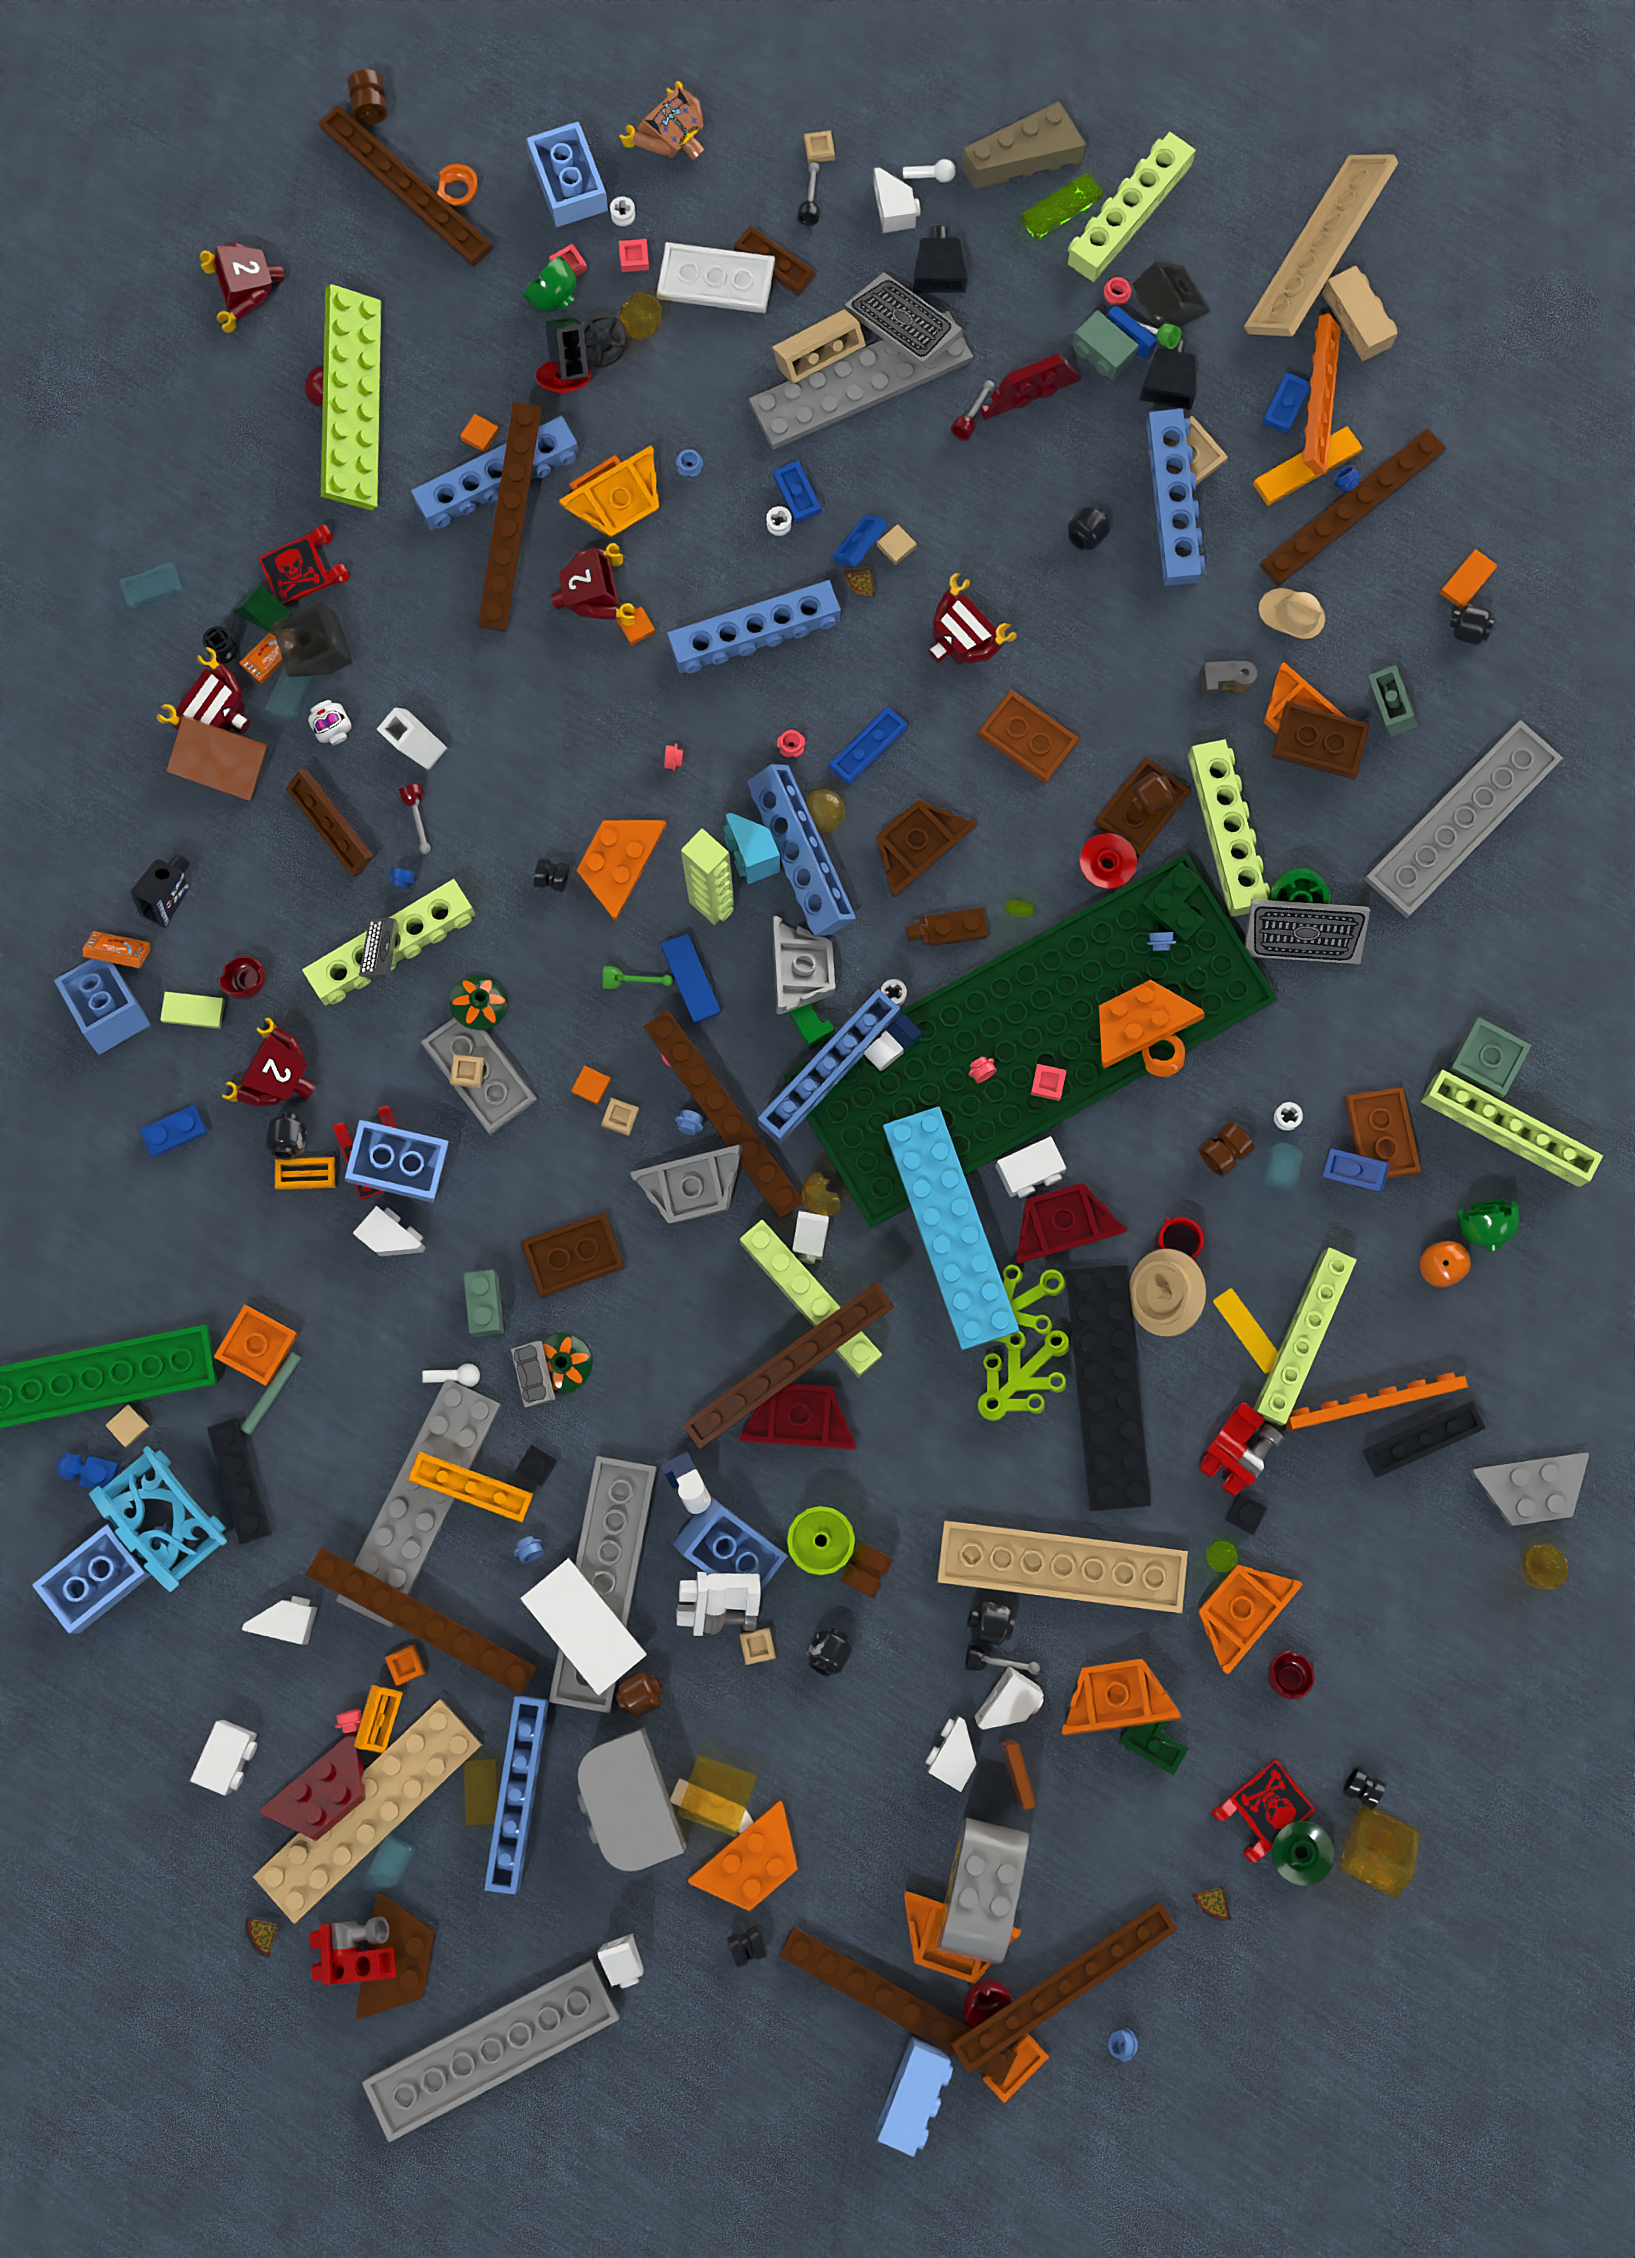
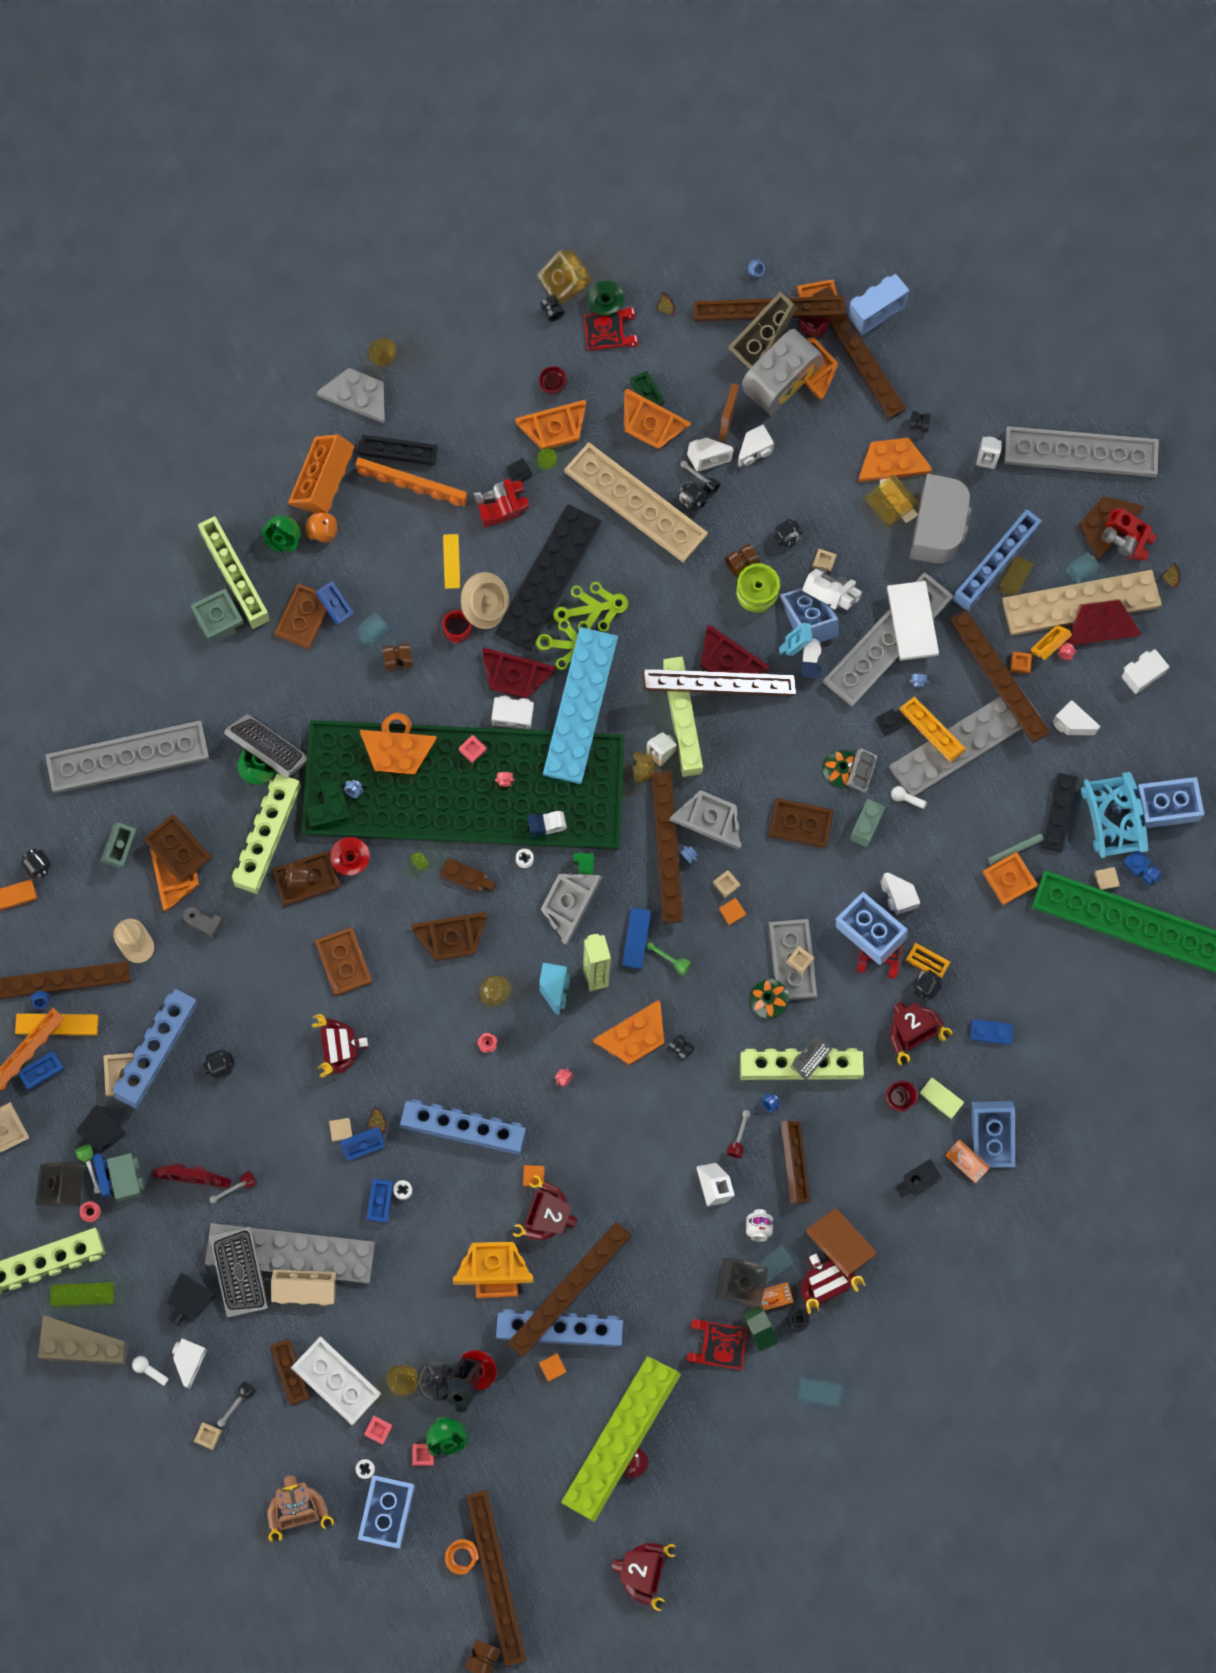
camera: 150 degrees left, 5 degrees down
(639, 1694) = (902, 571): reddish brown head -> none
(686, 457) = (439, 1263): medium blue plate -> none
(719, 1489) = (797, 640): none -> medium azure hinge
(801, 850) = (524, 970): medium blue brick -> none
(828, 1067) = (592, 829): medium blue brick -> none
(868, 746) = (442, 1014): blue tile -> none
(1047, 1924) = (763, 330): none -> dark tan wedge
(1290, 1125) = (352, 651): white bush -> none
(1304, 1336) = (425, 536): yellowish green brick -> none
(1498, 1338) = (321, 473): none -> orange slope

